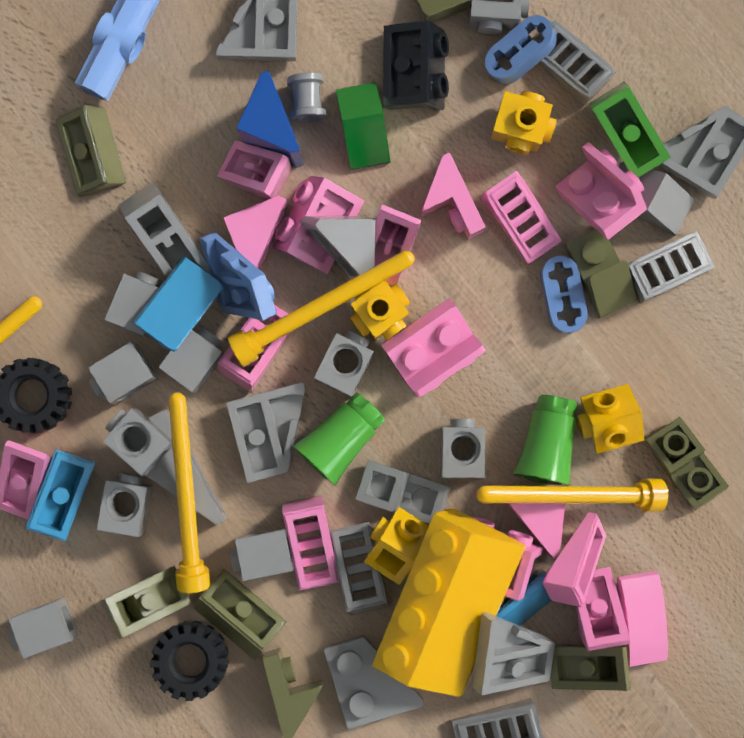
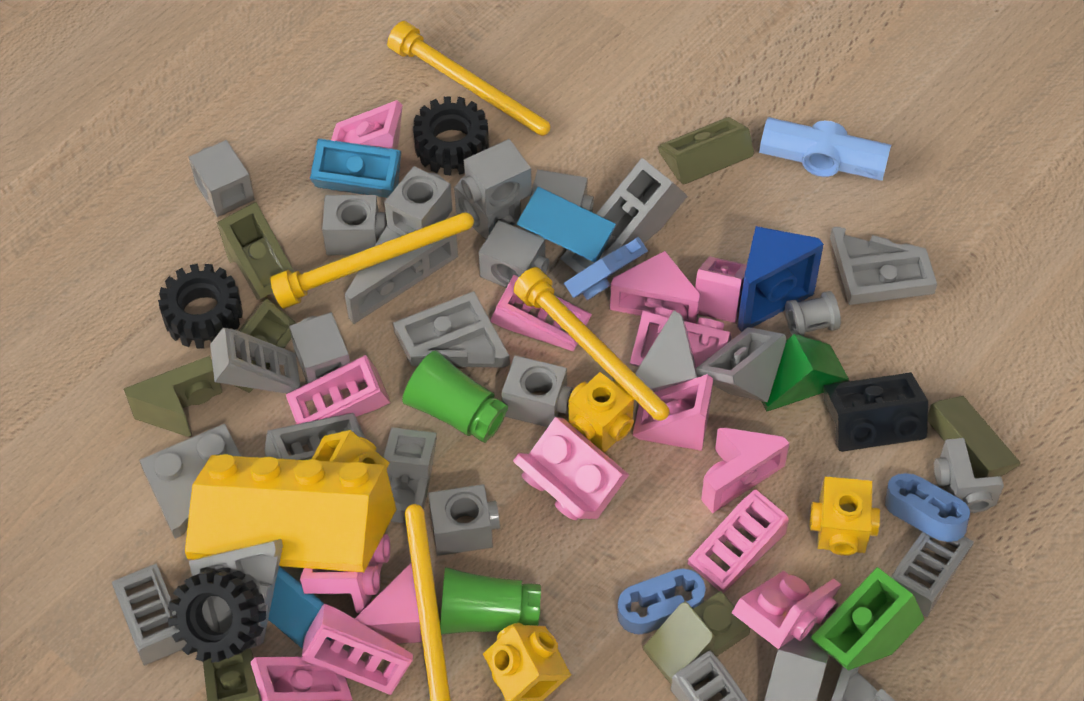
camera: 80 degrees right, 30 degrees down
(119, 362) = (496, 177): none -> light grey brick
(273, 644) = (229, 369): none -> light grey slope
(358, 171) = (746, 364): none -> light grey slope
(548, 684) = (192, 624): none -> black tyre

